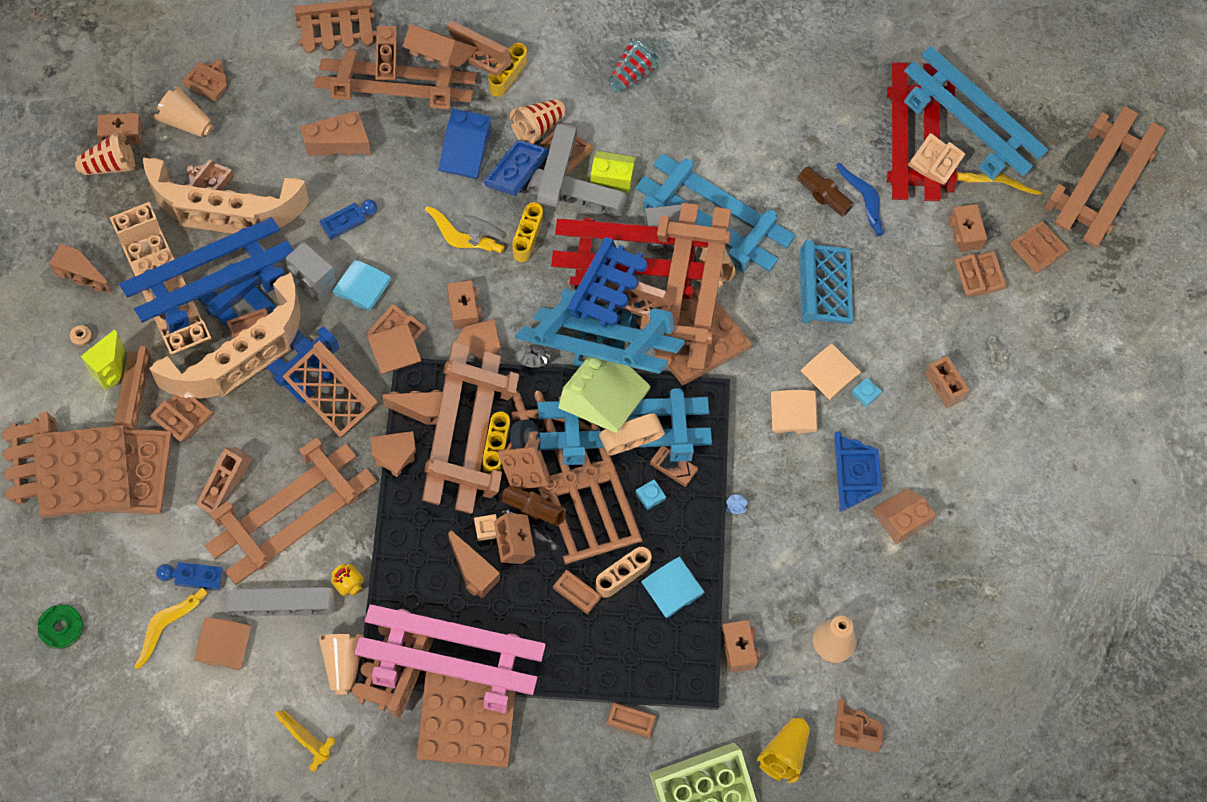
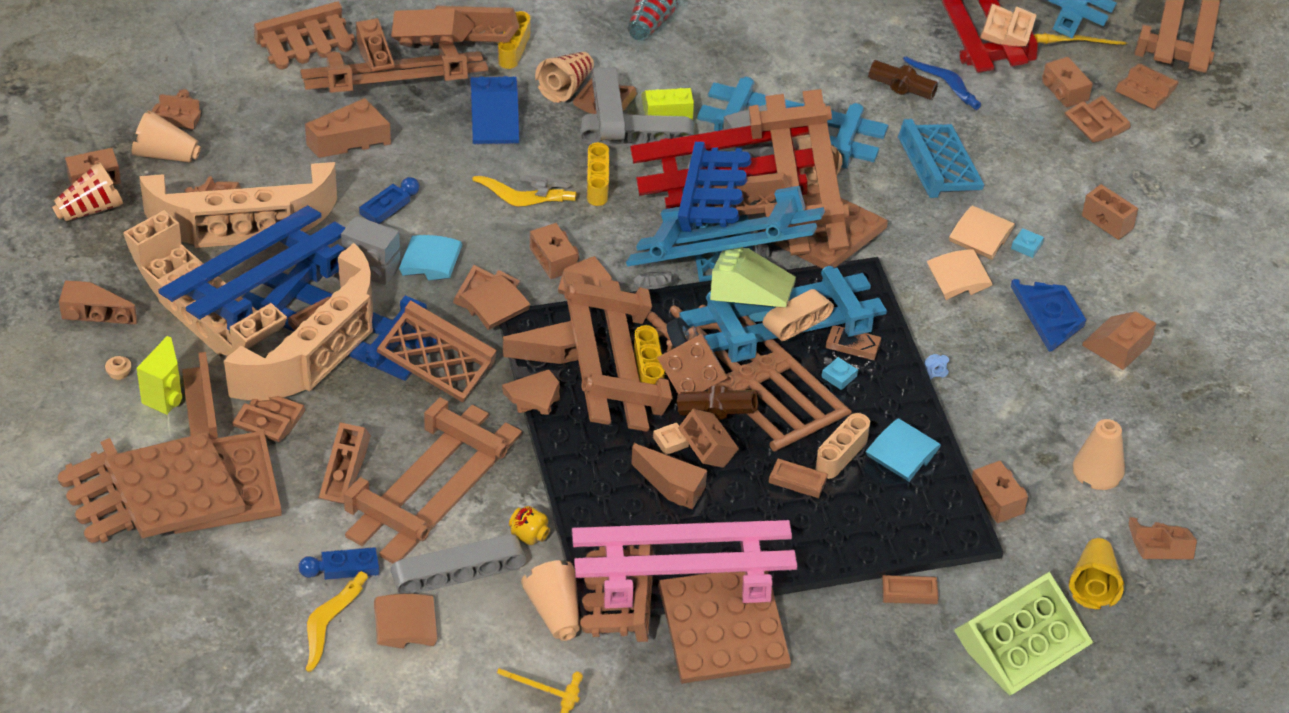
camera: 15 degrees left, 20 degrees down
(64, 638) = (200, 662): green tile -> none
(516, 167) = (561, 120): blue tile -> none

